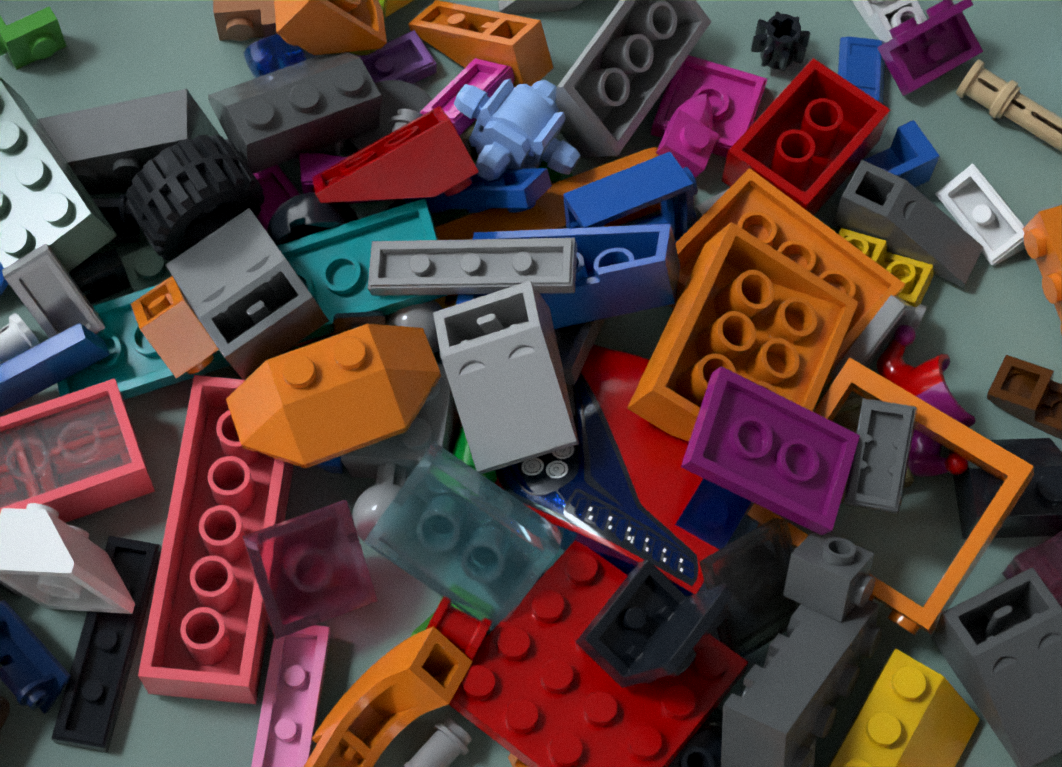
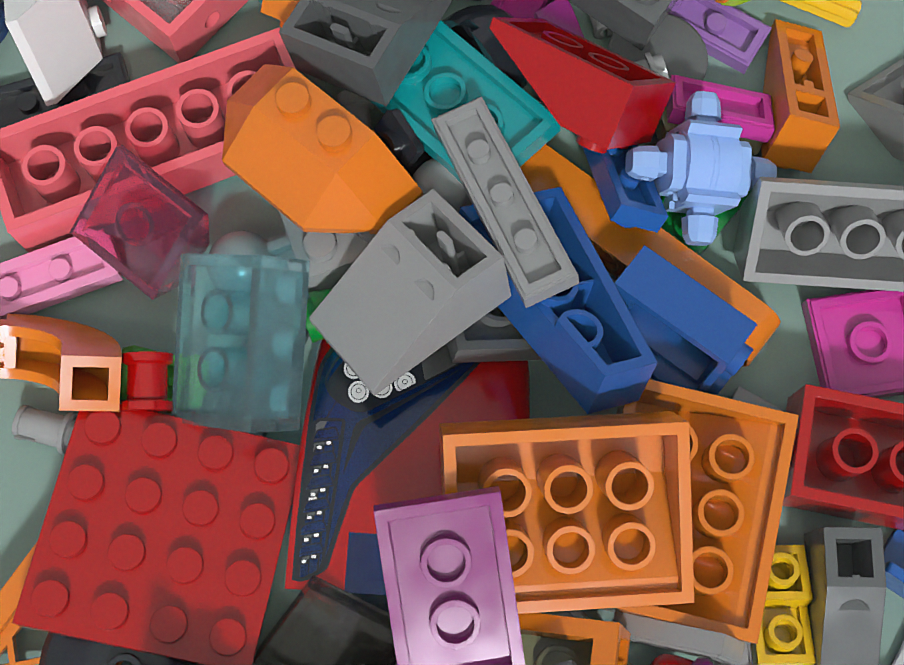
camera: 65 degrees right, 10 degrees up
(651, 627) = (212, 563): black bracket -> none
(690, 134) = (813, 339): dark pink plate -> none

